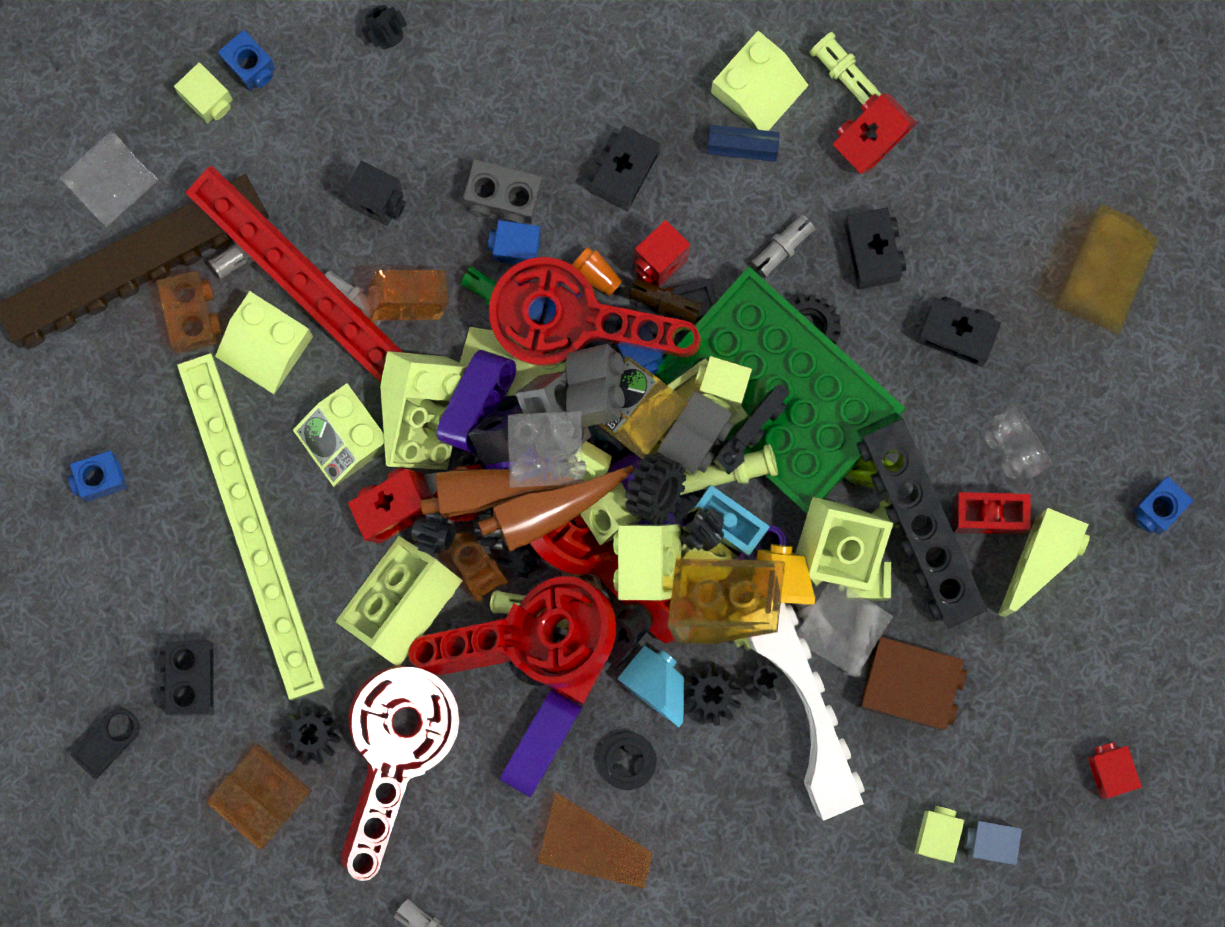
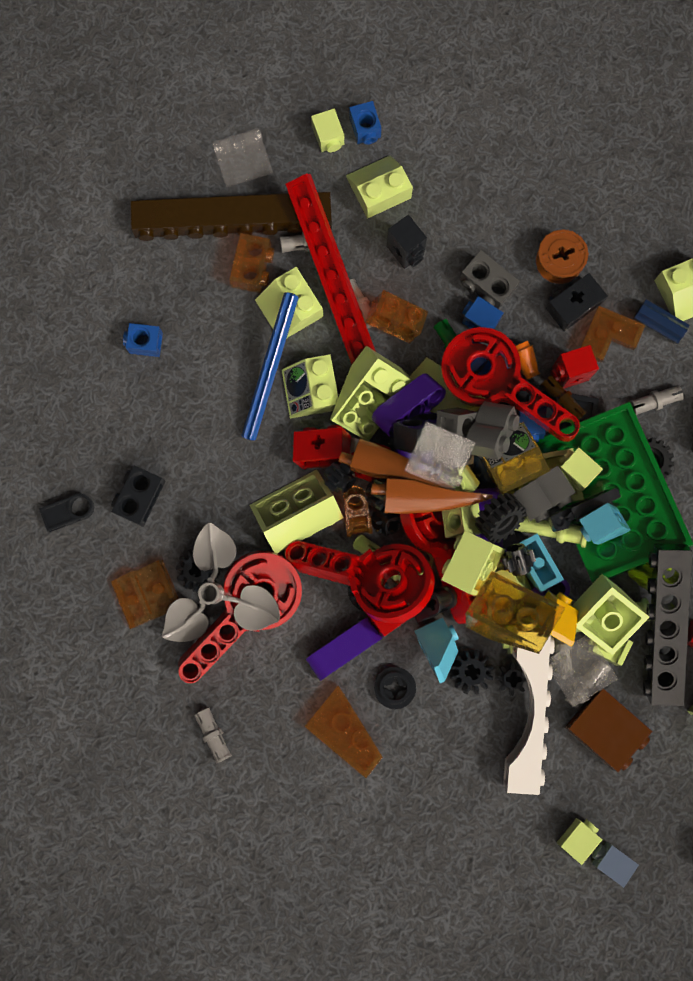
camera: 30 degrees right, 0 degrees up
(251, 527) = (225, 411): yellowish green plate -> none
(277, 434) = (270, 366): none -> blue axle
(305, 133) = (380, 186): none -> yellowish green slope
(384, 26) = (462, 140): black gear -> none
(406, 747) = (254, 609): none -> light grey plant
(576, 100) = (565, 244): none -> dark orange piece
(680, 180) = (609, 327): none -> clear orange plate
(785, 436) = (603, 524): none -> medium azure slope

